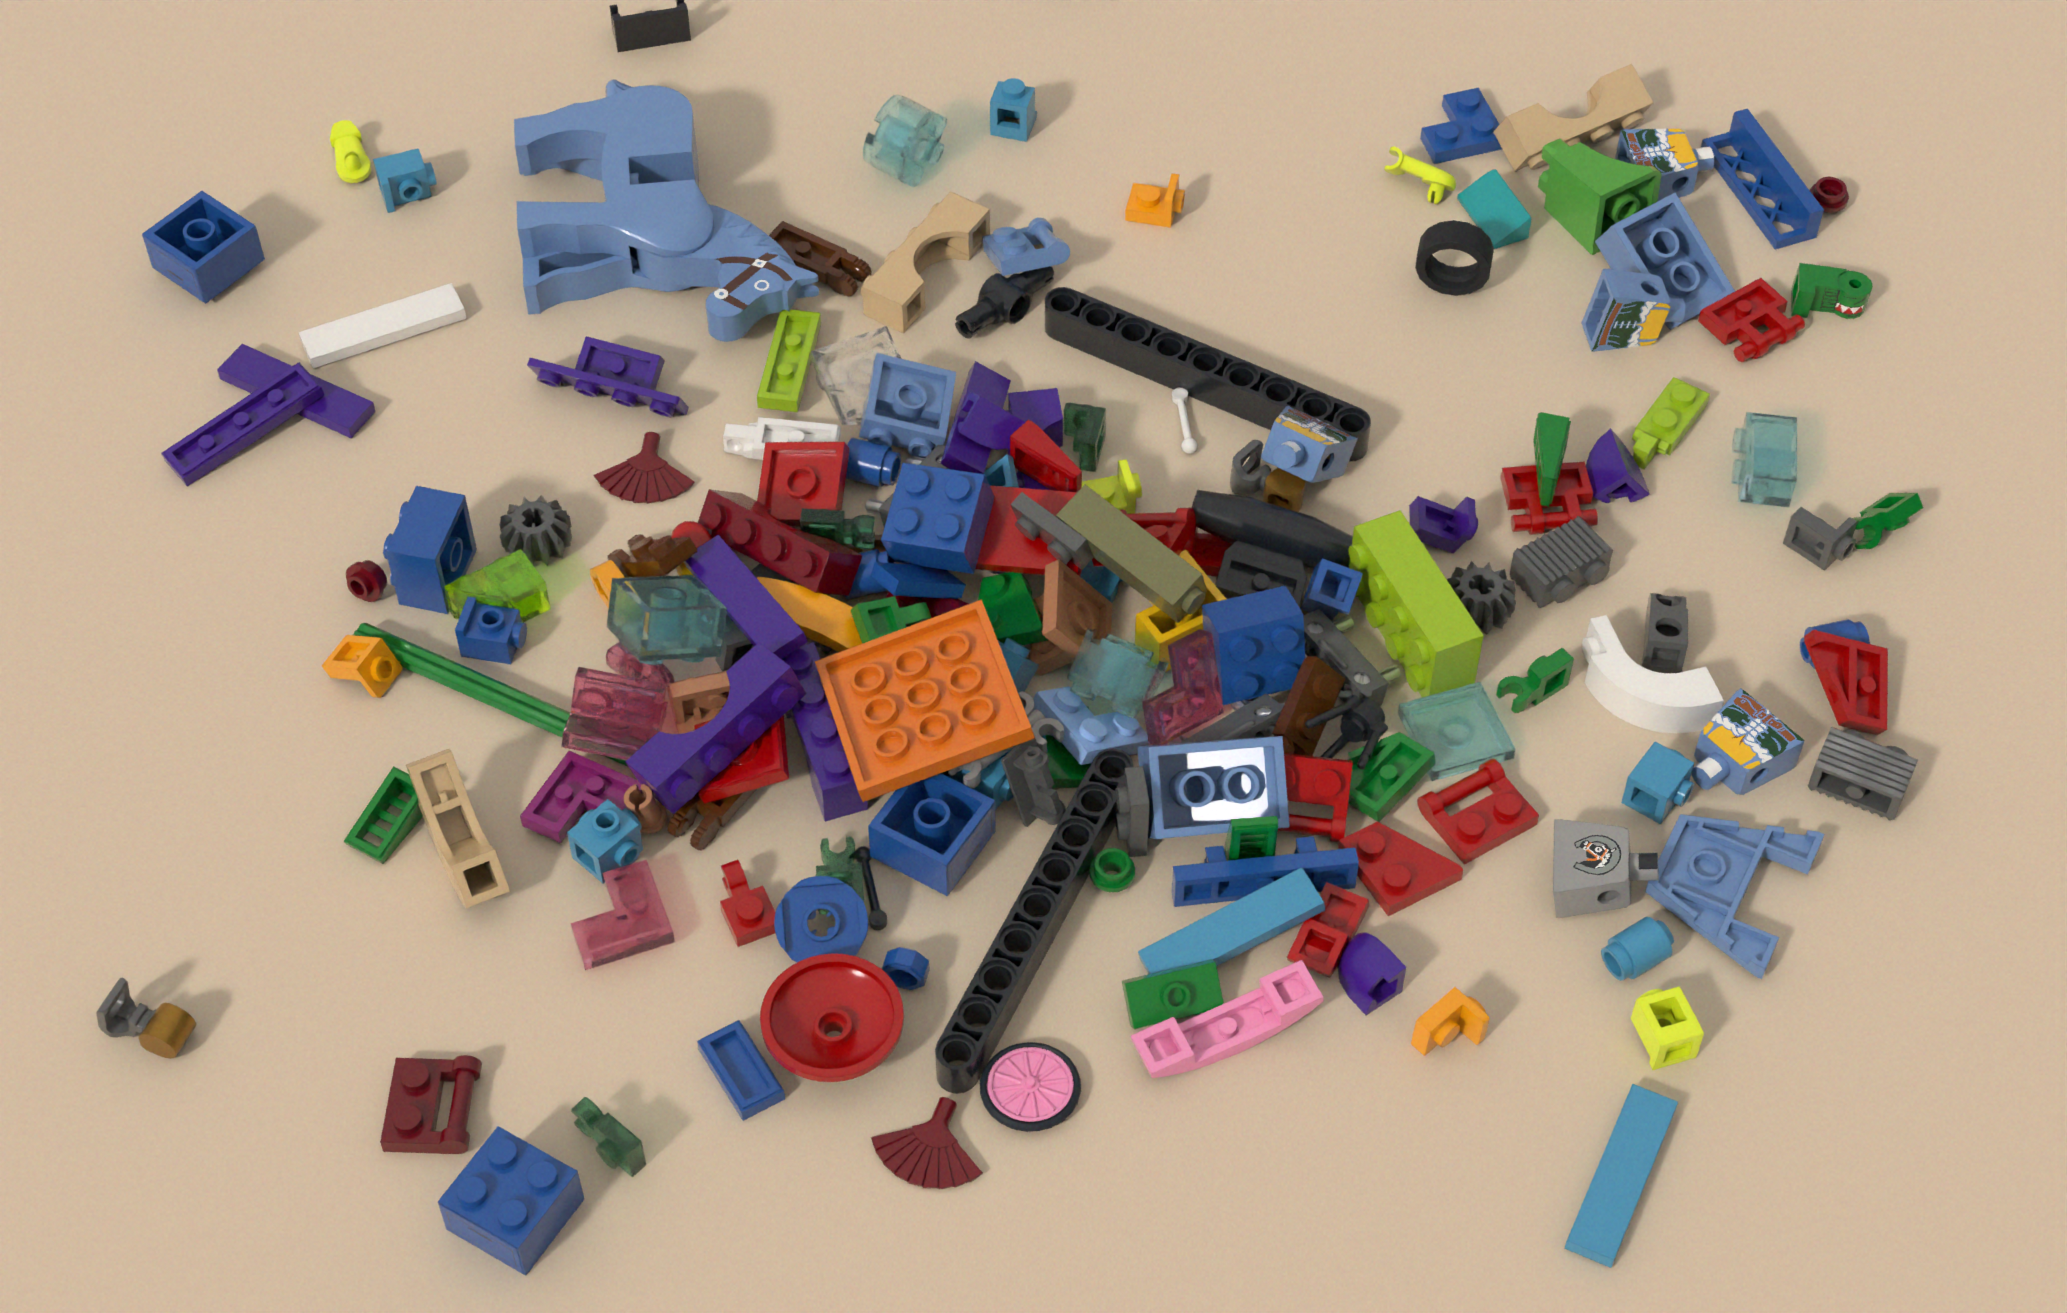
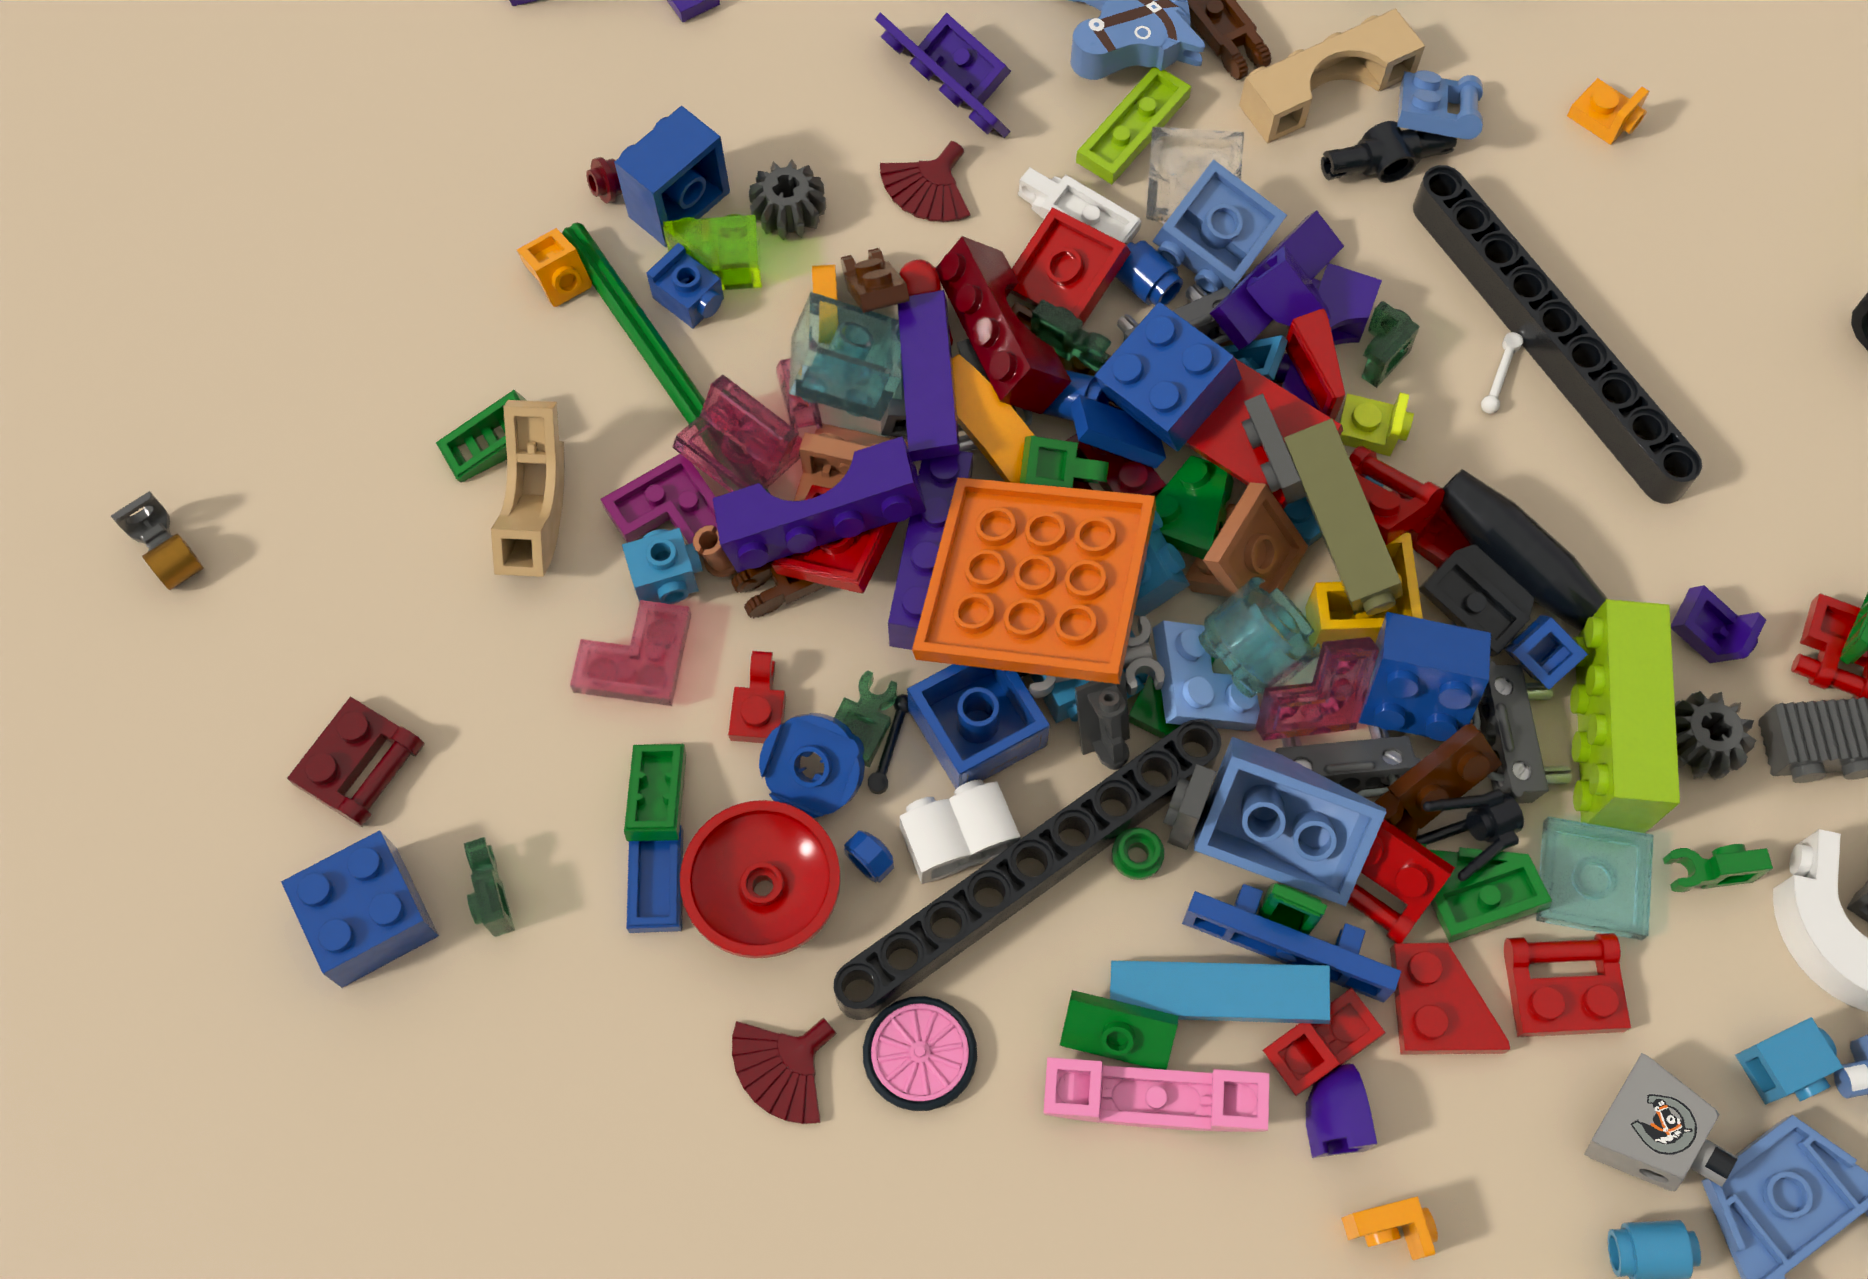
camera: 30 degrees right, 15 degrees up
(703, 1005) = (655, 792): none -> green plate
(964, 918) = (958, 830): none -> white brick
(1273, 484) = (1559, 502): leg -> none
(1302, 444) = (1612, 471): medium blue torso -> none

